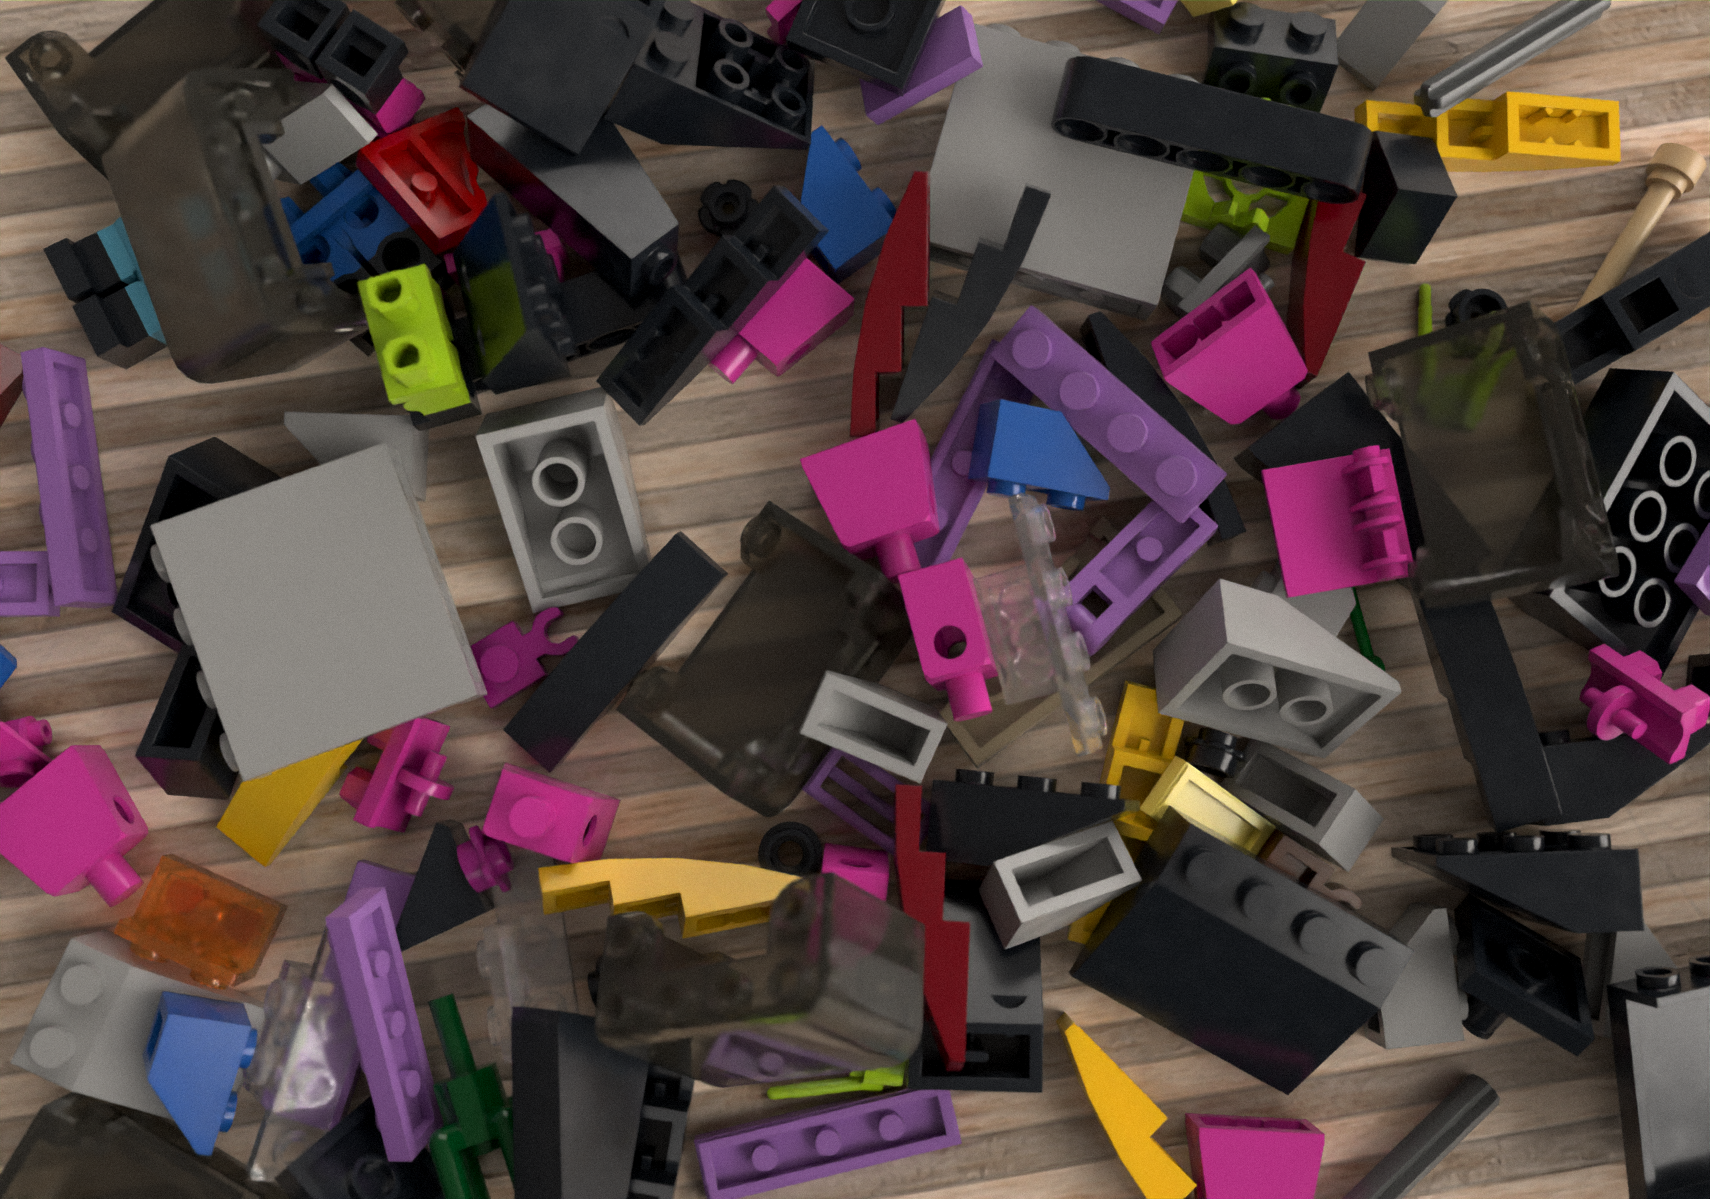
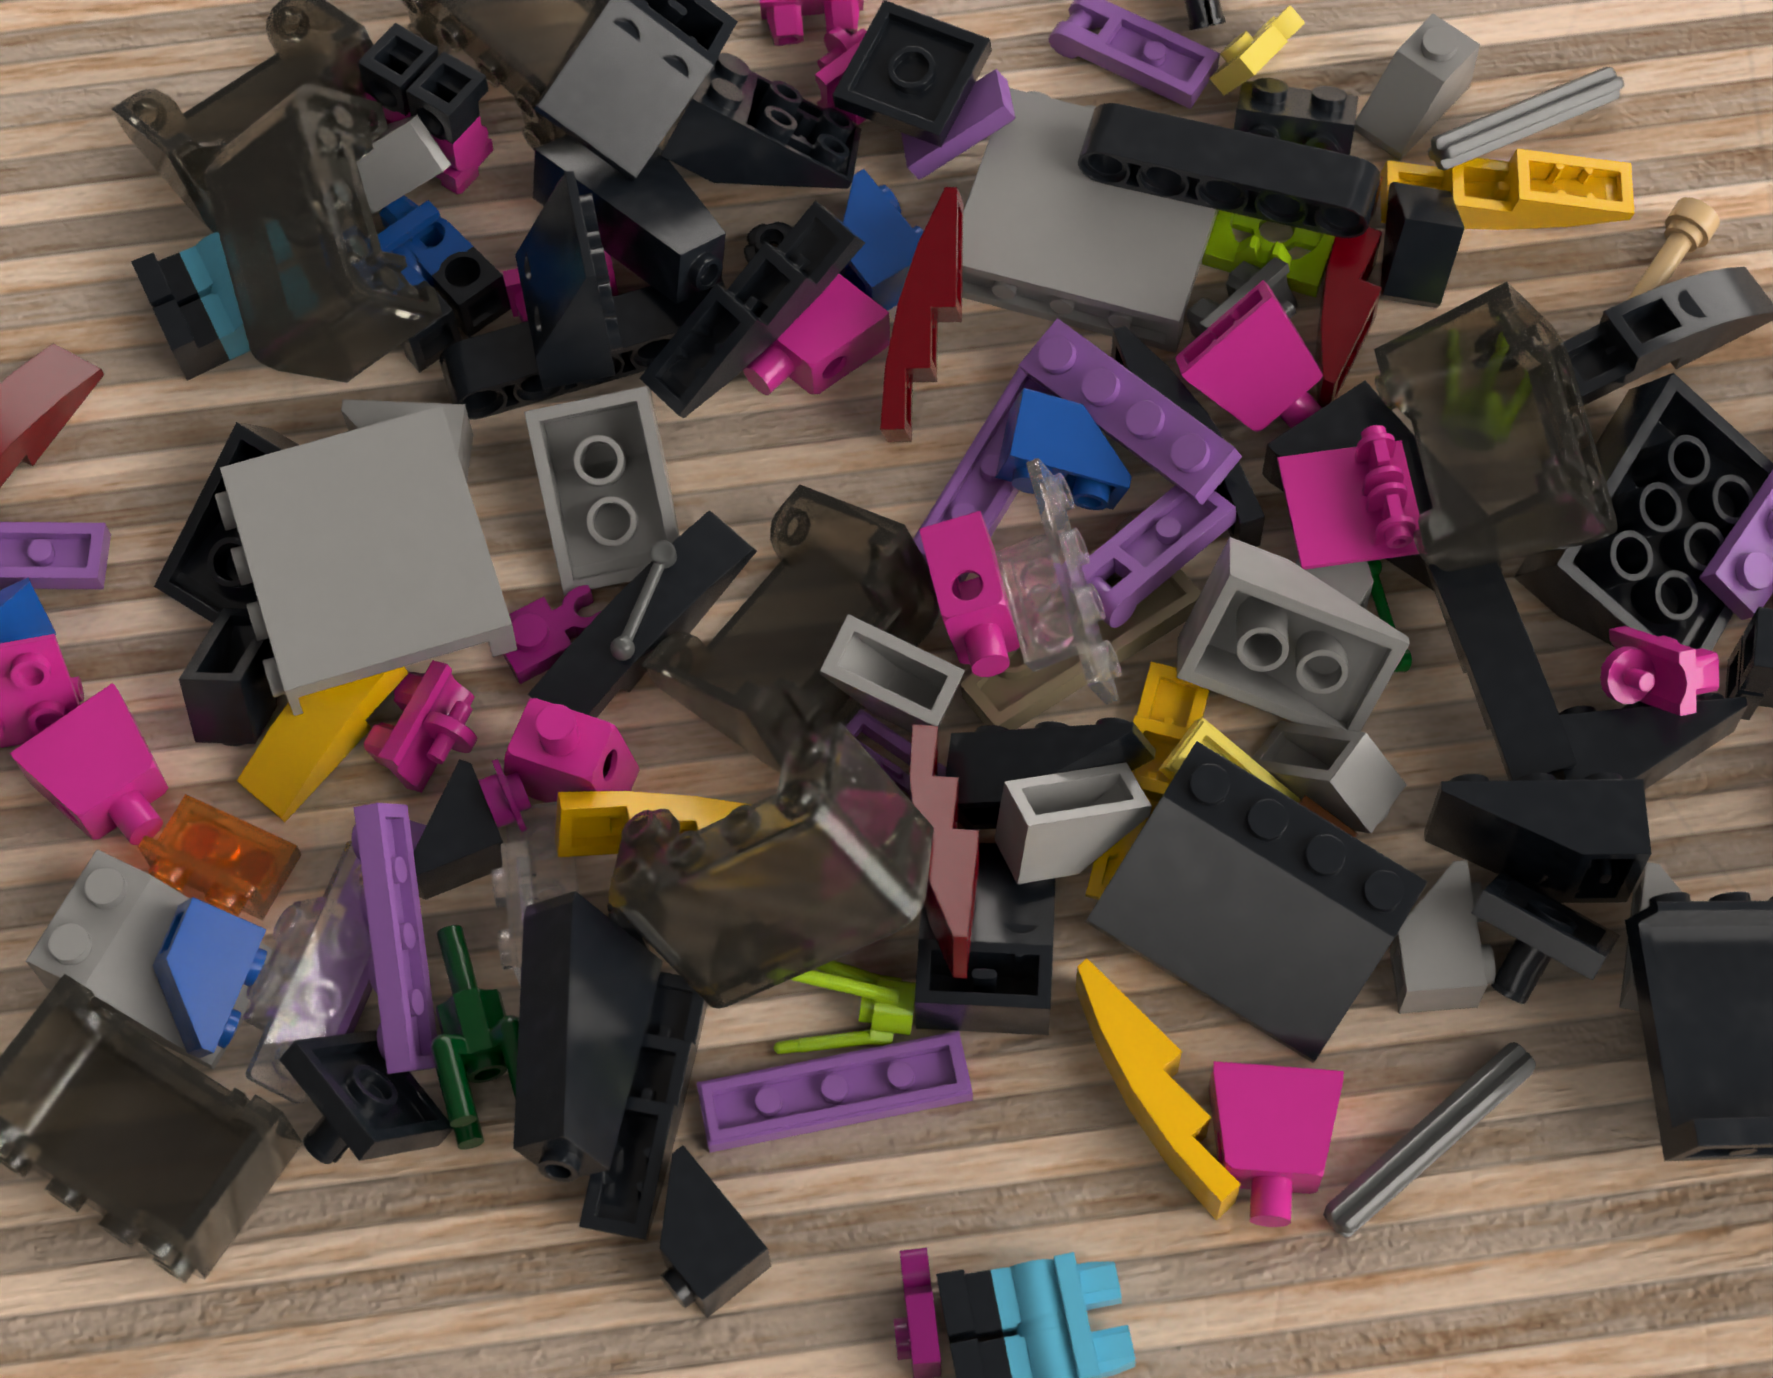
camera: 15 degrees right, 20 degrees down
(69, 479) = (129, 465): medium lavender plate -> none
(419, 347) = (480, 328): lime hips -> none
(428, 178) = (488, 208): red wing -> none
(631, 590) = (663, 556): none -> dark grey hinge
(879, 495) = (906, 473): dark pink torso -> none
(956, 322) = (985, 332): black slope -> none
(1213, 753) = (1241, 725): black plate -> none

